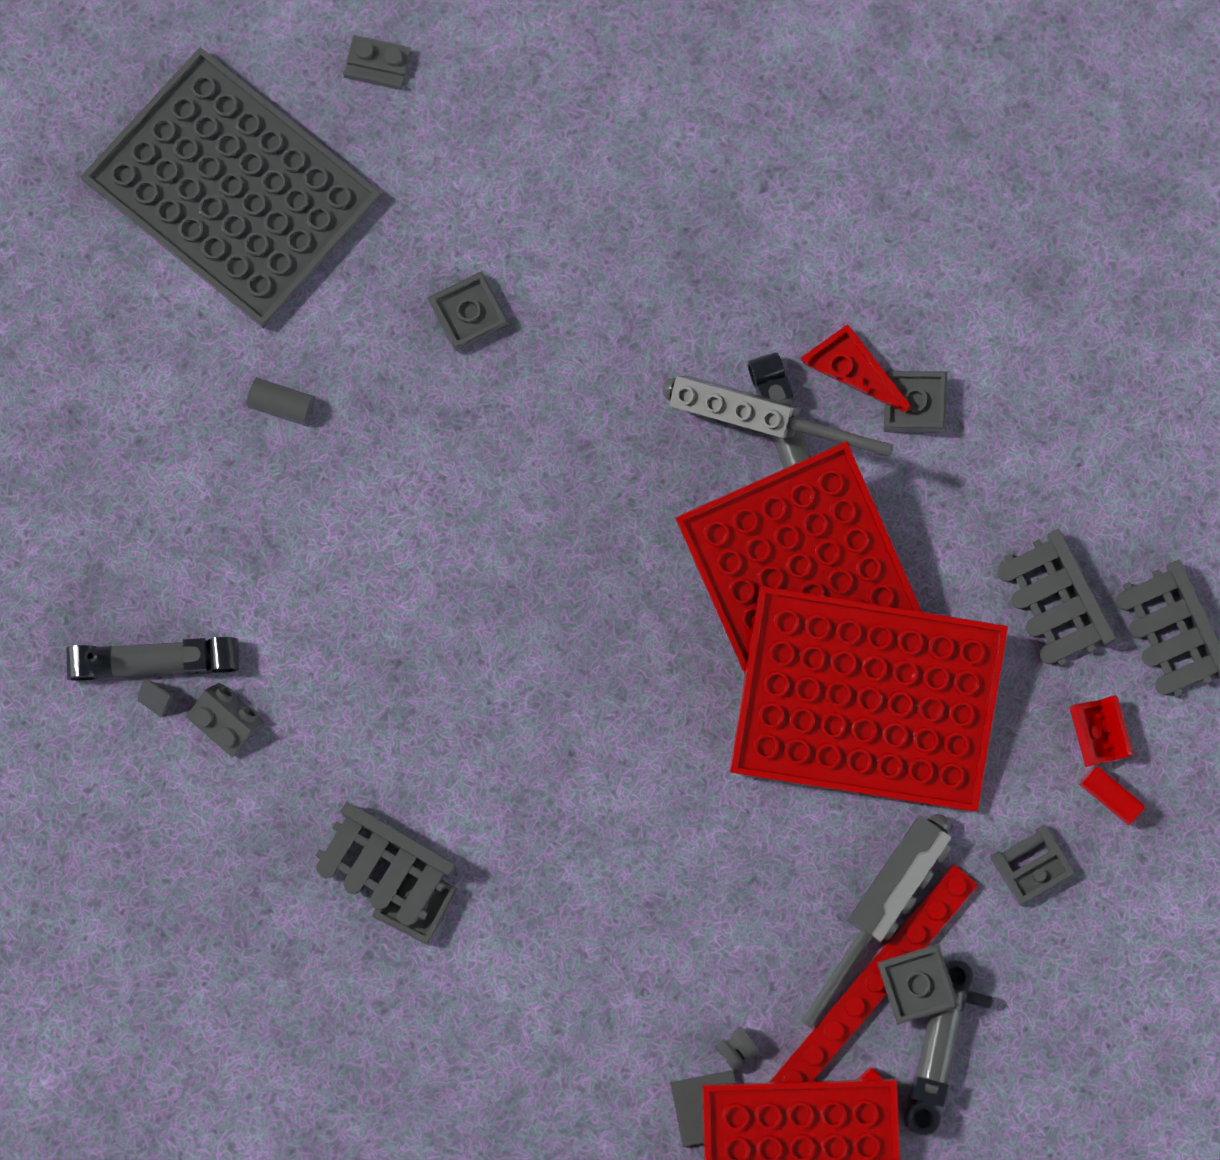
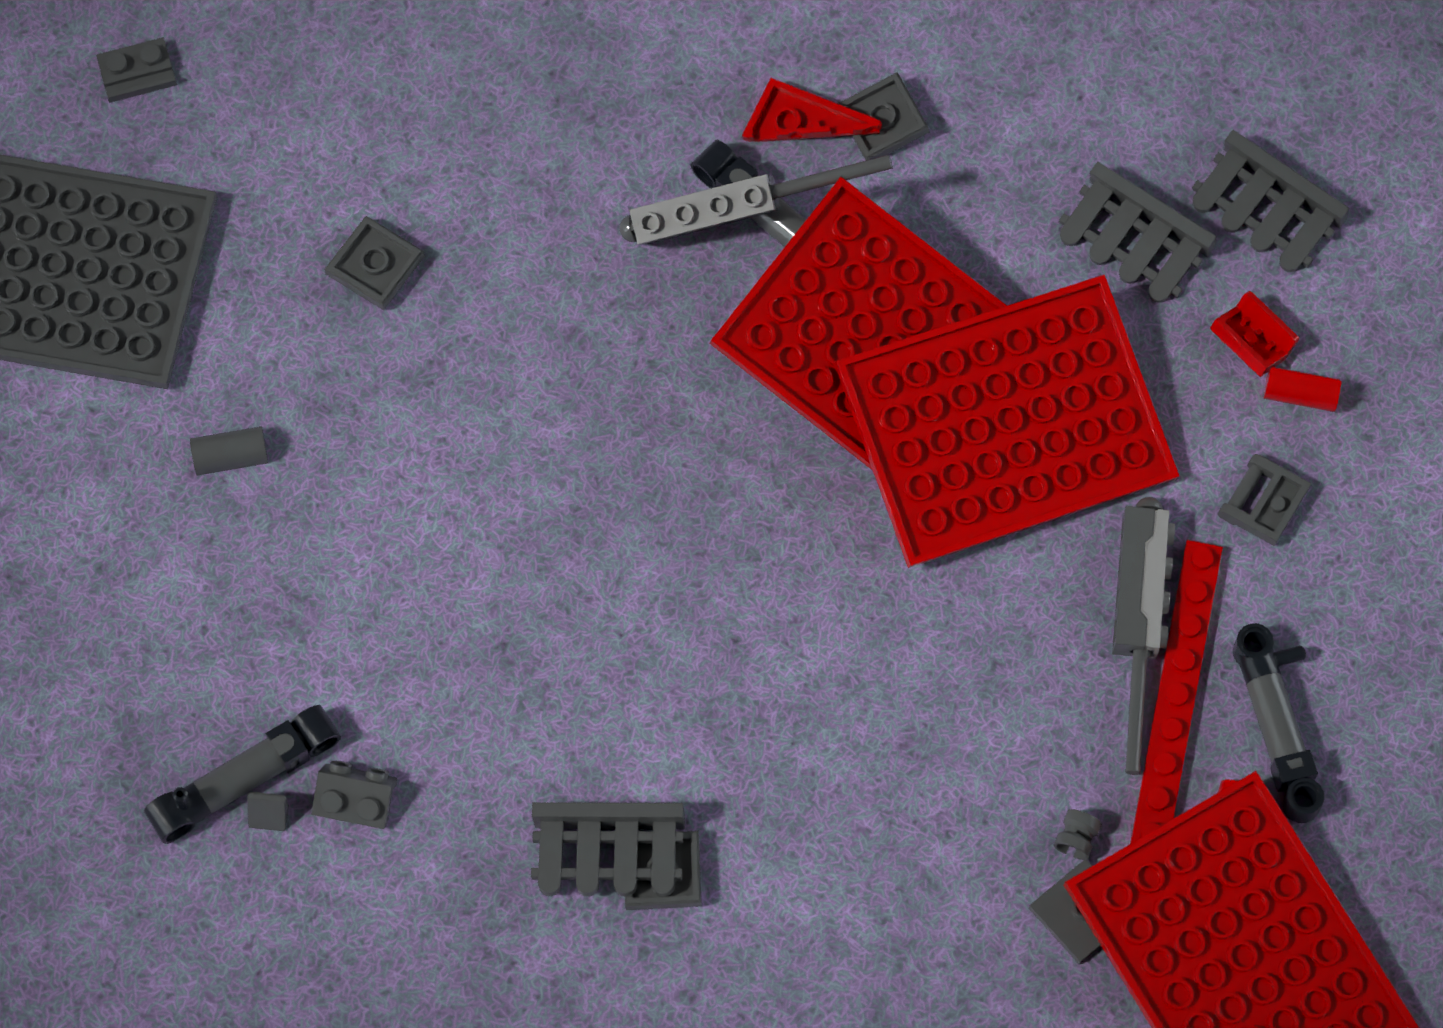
camera: 25 degrees left, 10 degrees down
(918, 984) = (1221, 668): dark grey plate -> none

